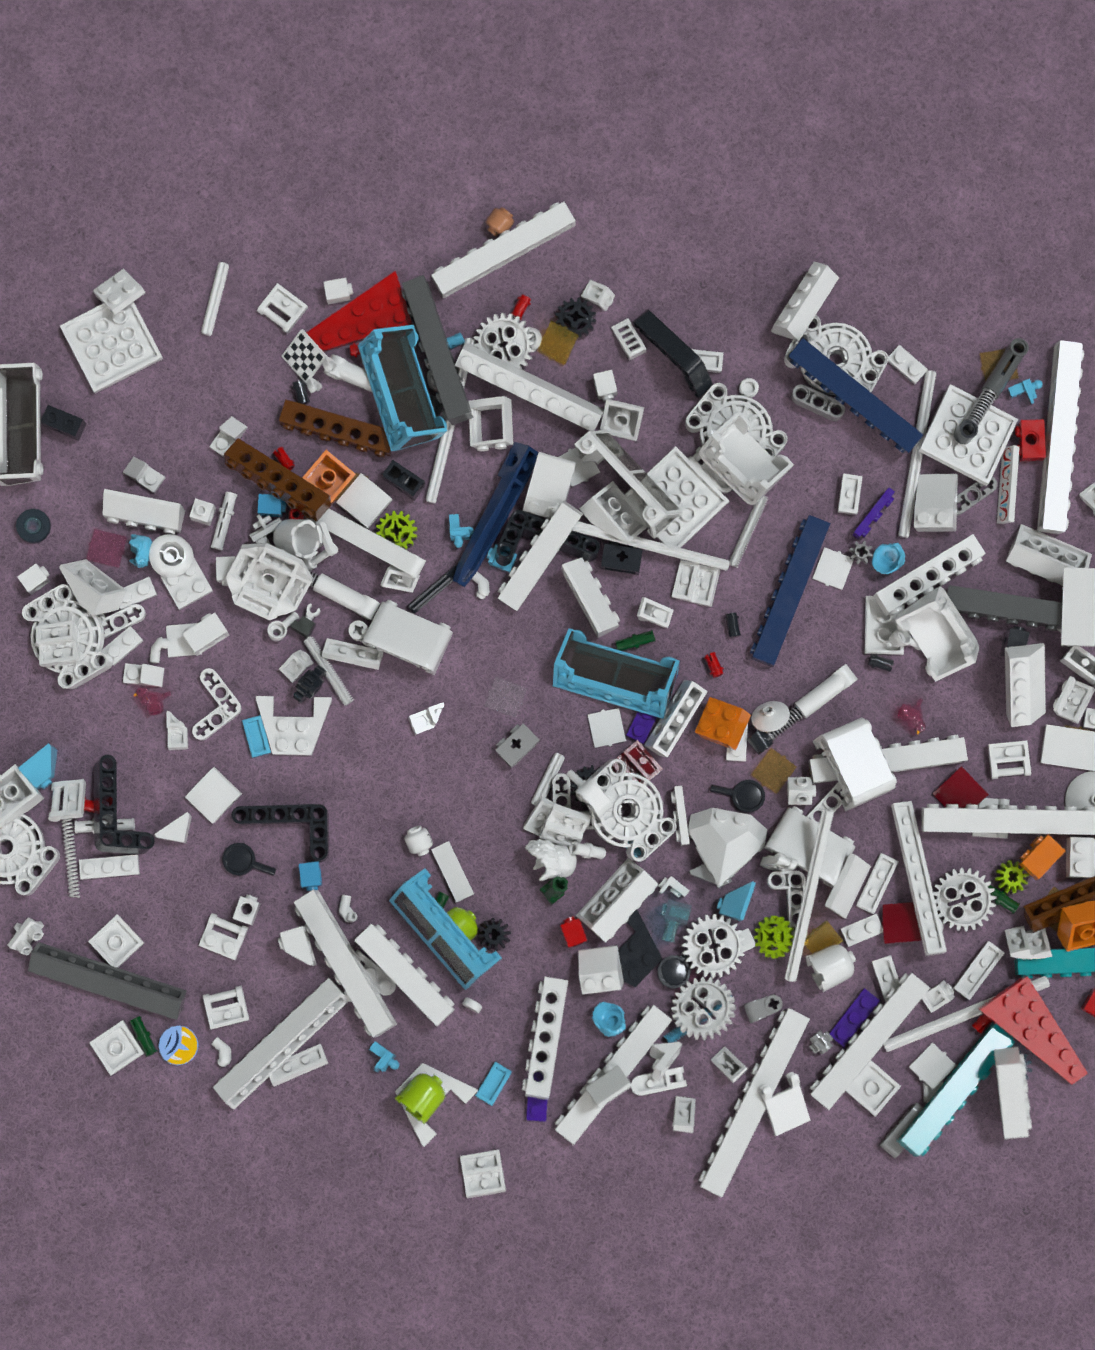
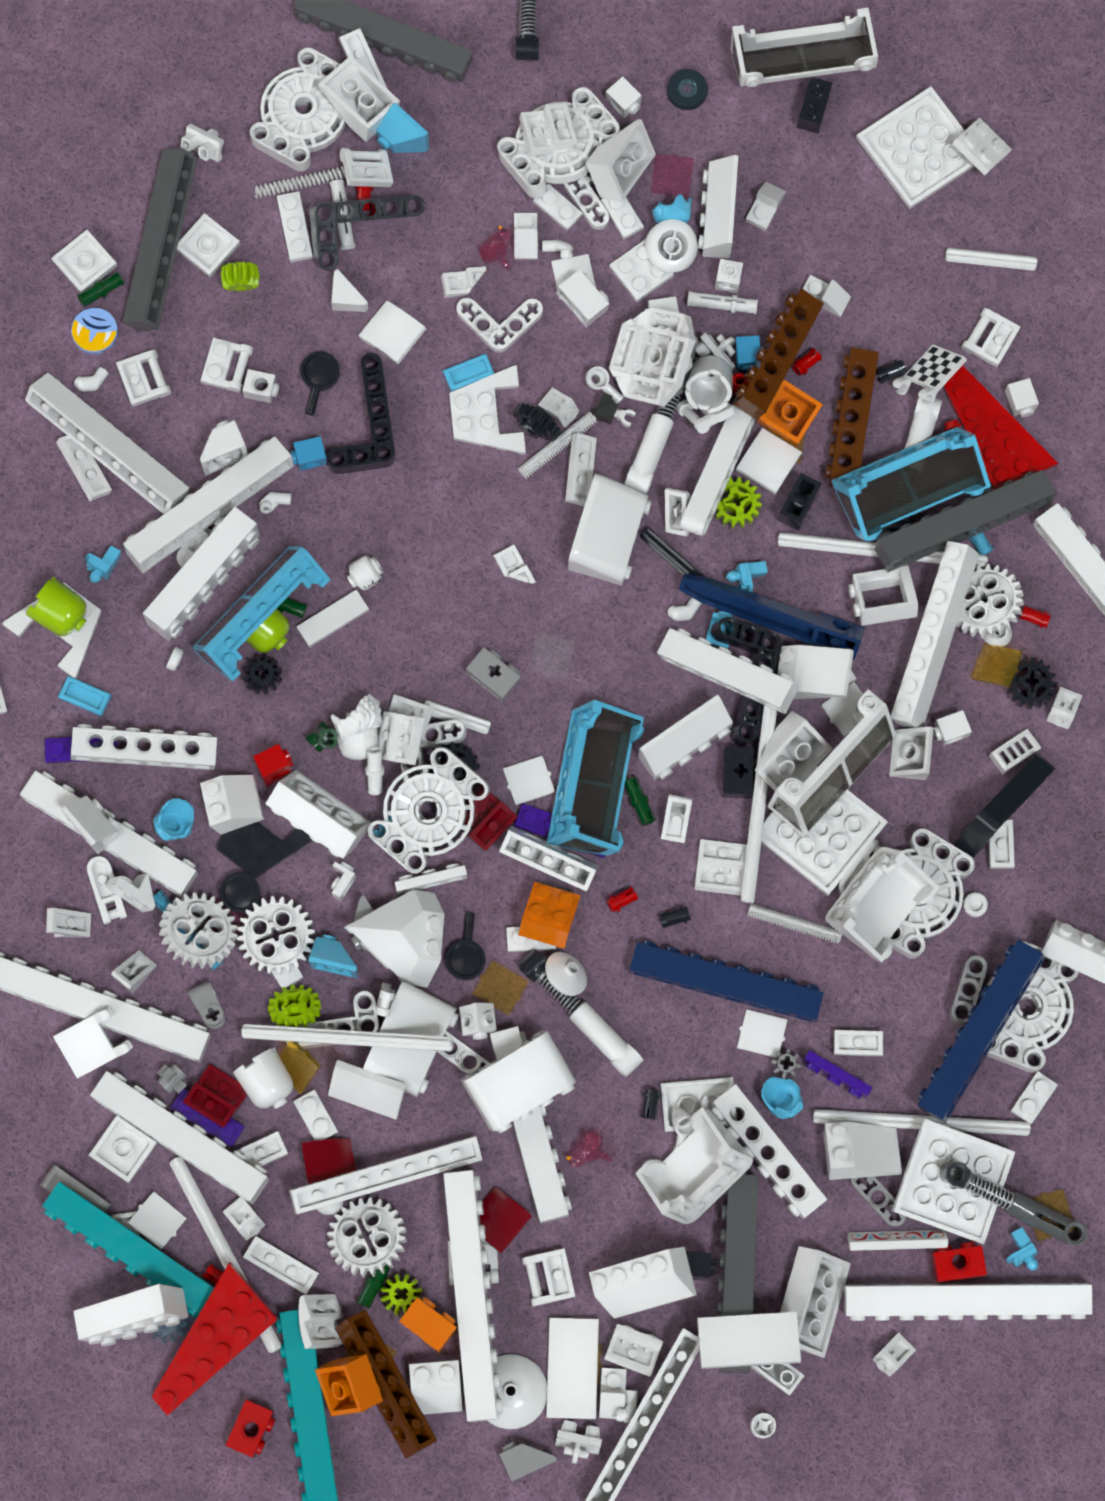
camera: 80 degrees right, 5 degrees down
(149, 916) = (240, 276): none -> lime gear
(359, 631) = (610, 465): white wheel -> none
(591, 793) = (439, 759): white beam -> none
(674, 914) = (307, 881): clear light blue brick -> none
(838, 1008) = (216, 1096): none -> dark red slope
(877, 883) = (375, 1129): white tile -> none

